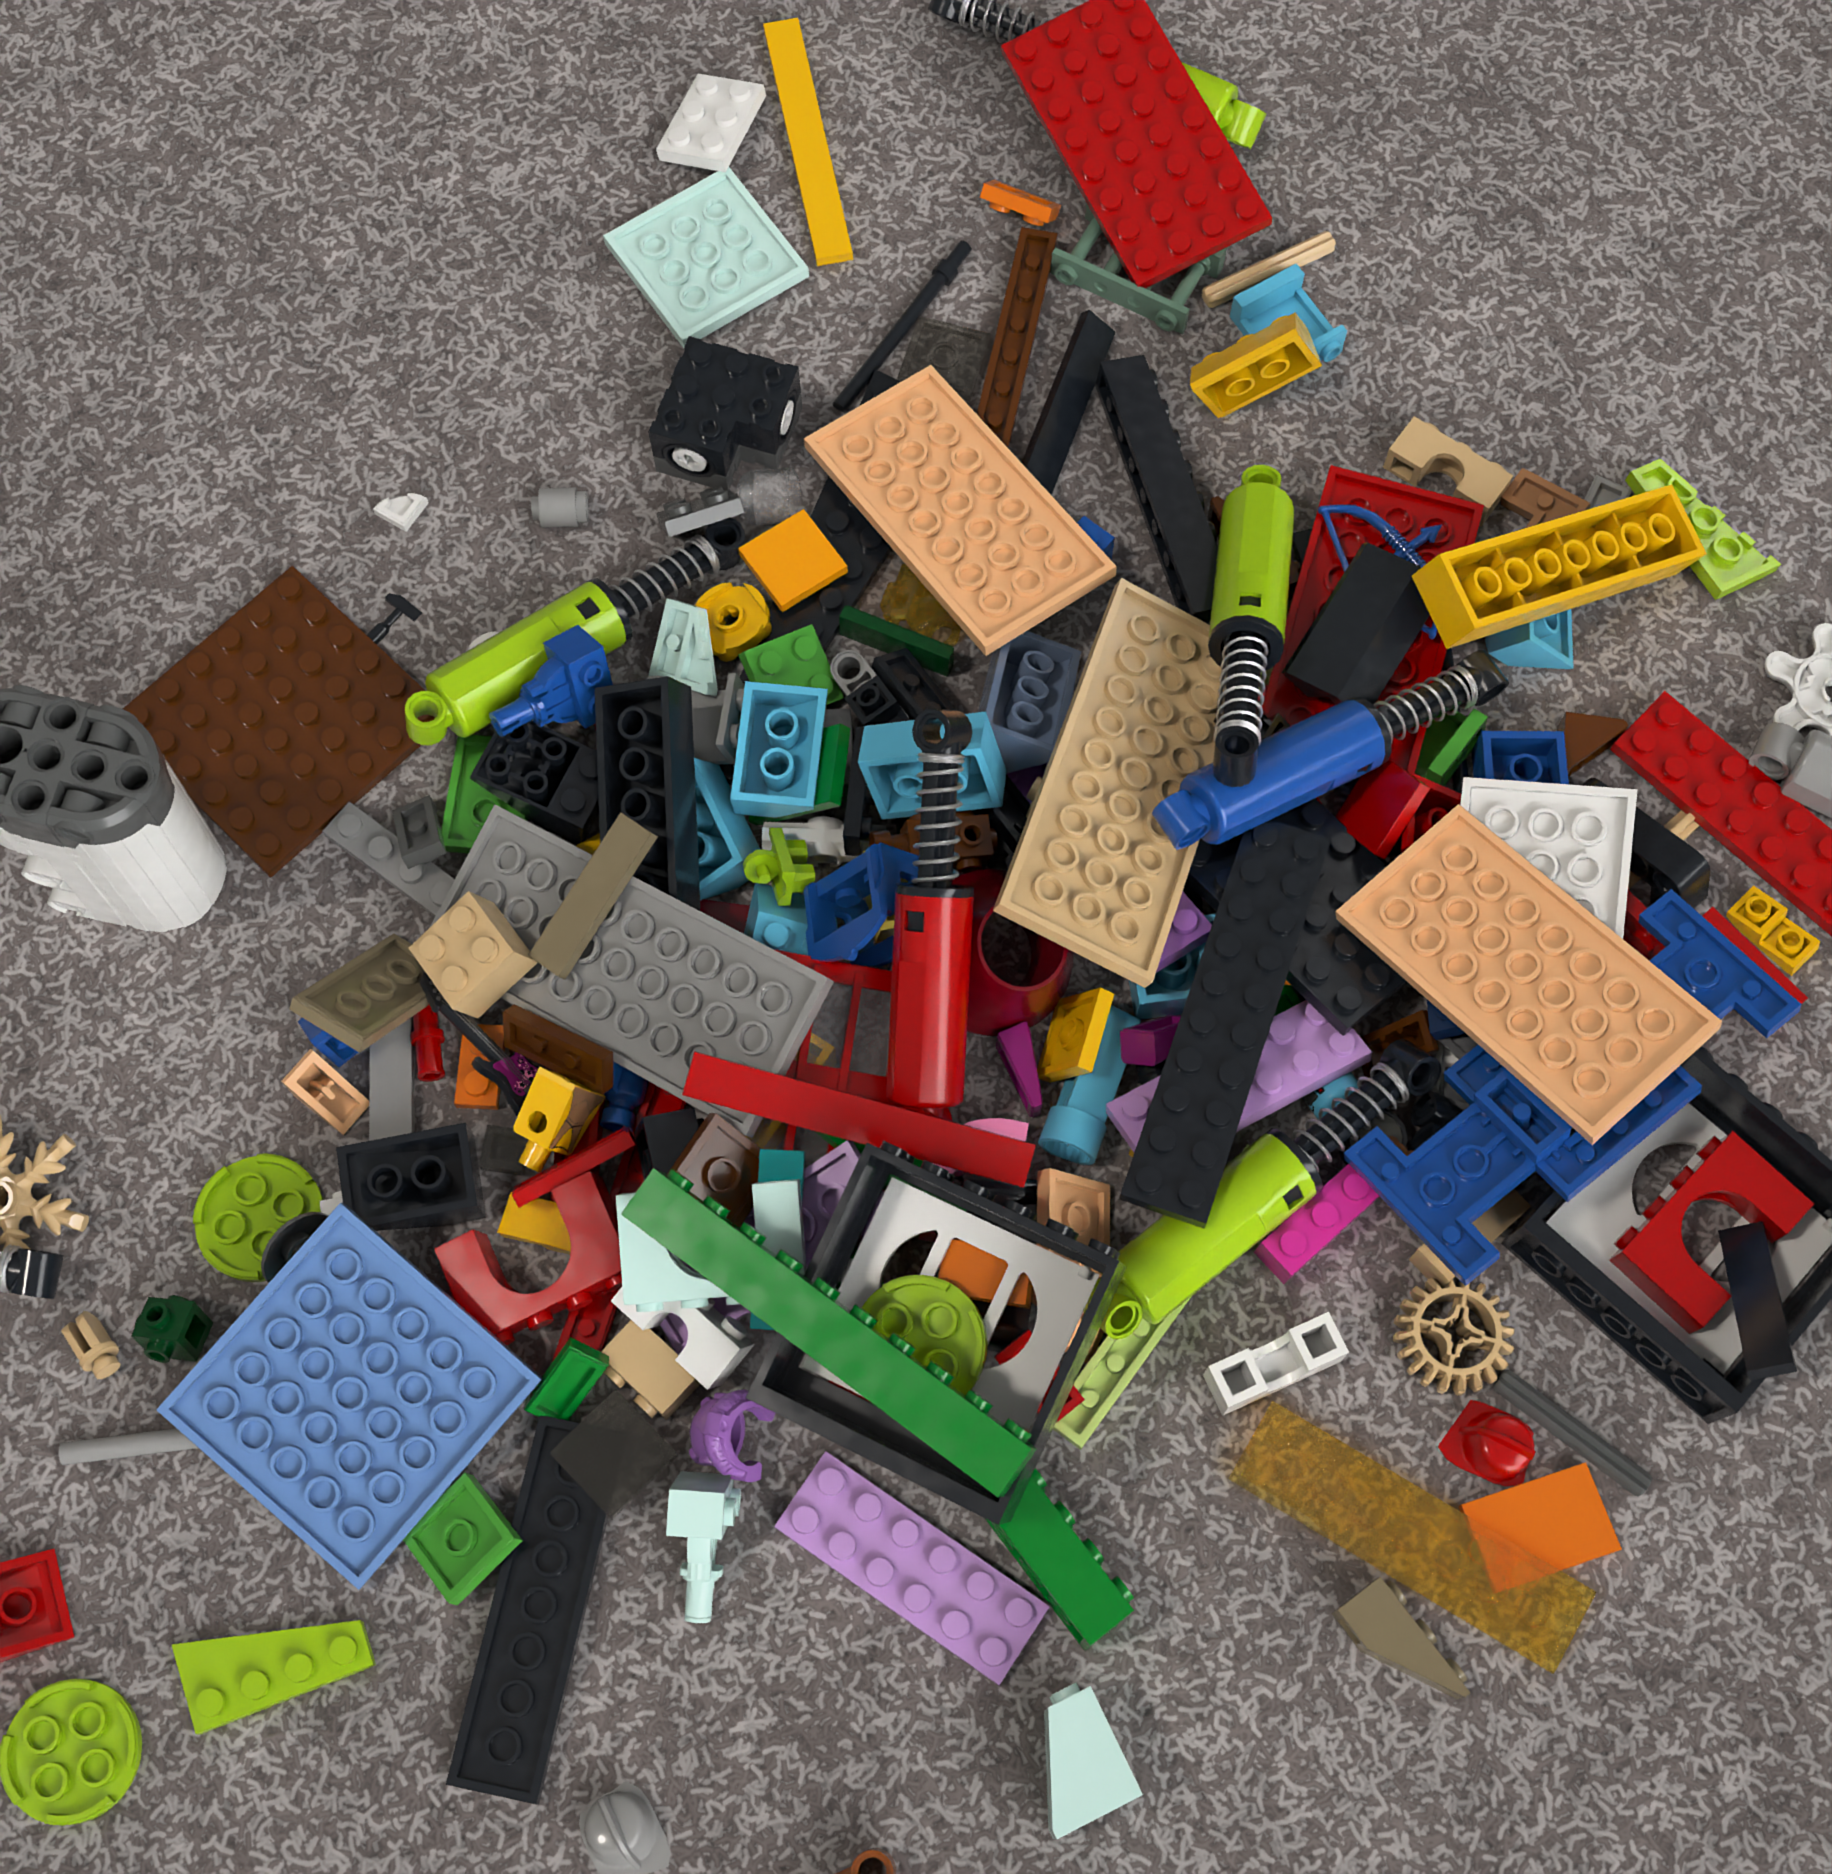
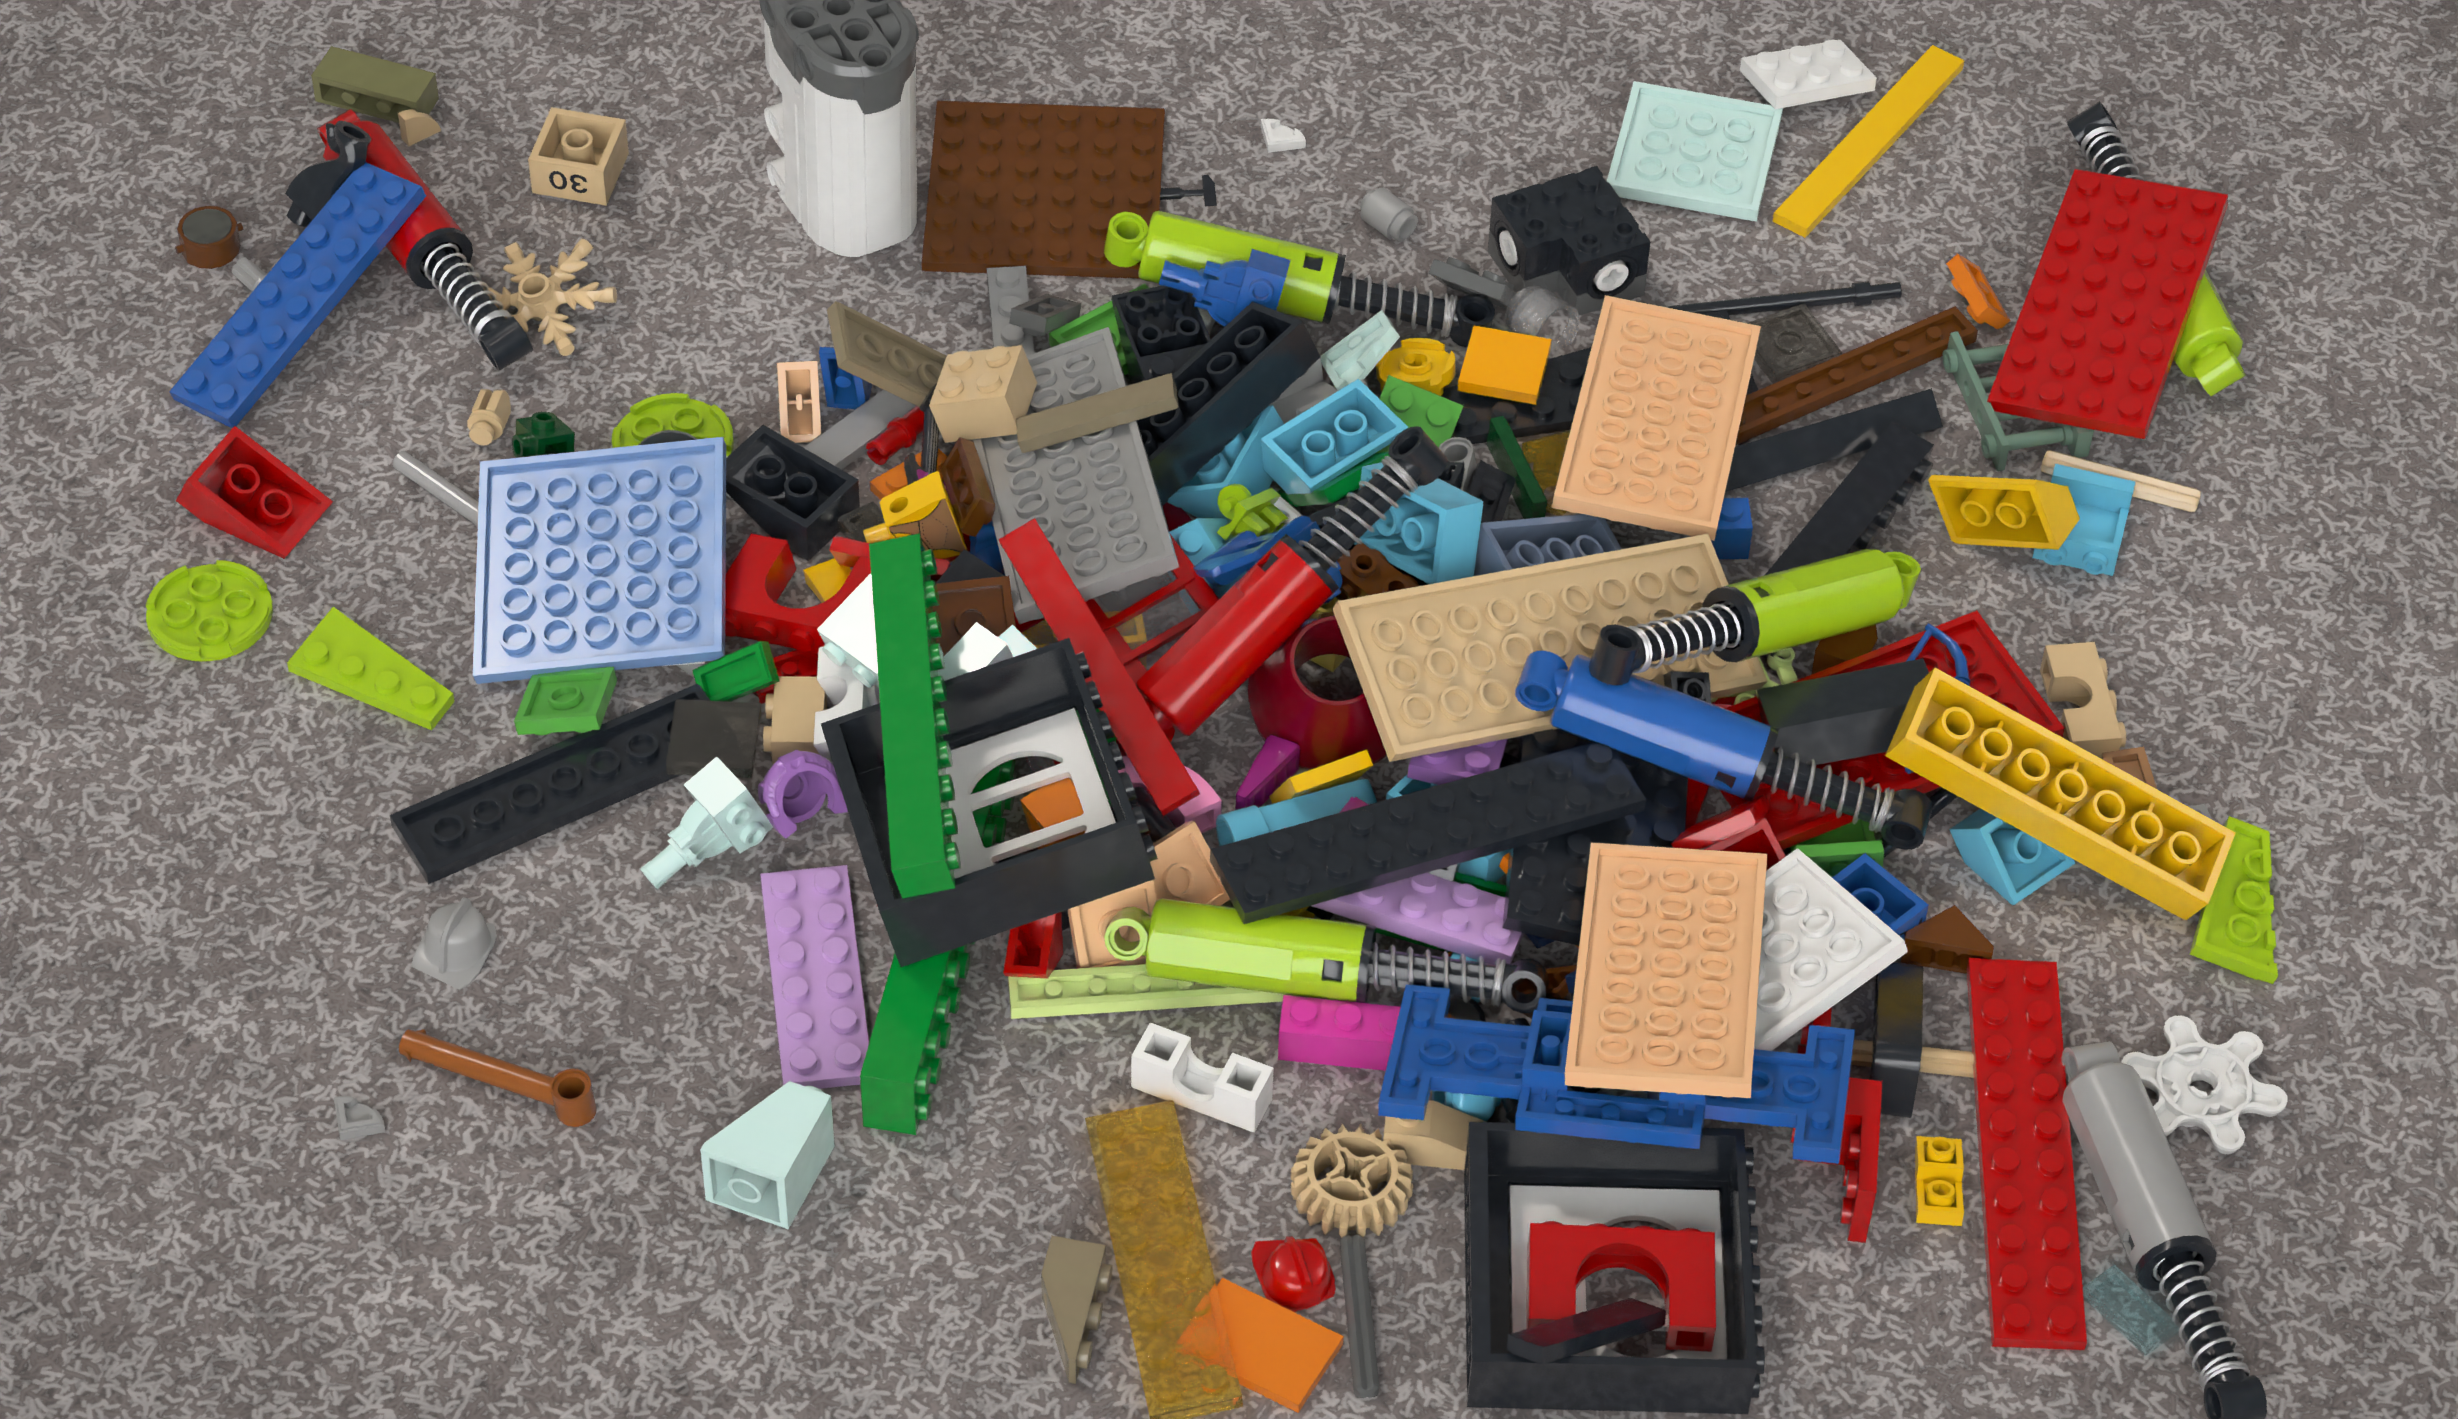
camera: 45 degrees right, 20 degrees down
(936, 1321) = (991, 809): lime tile -> none

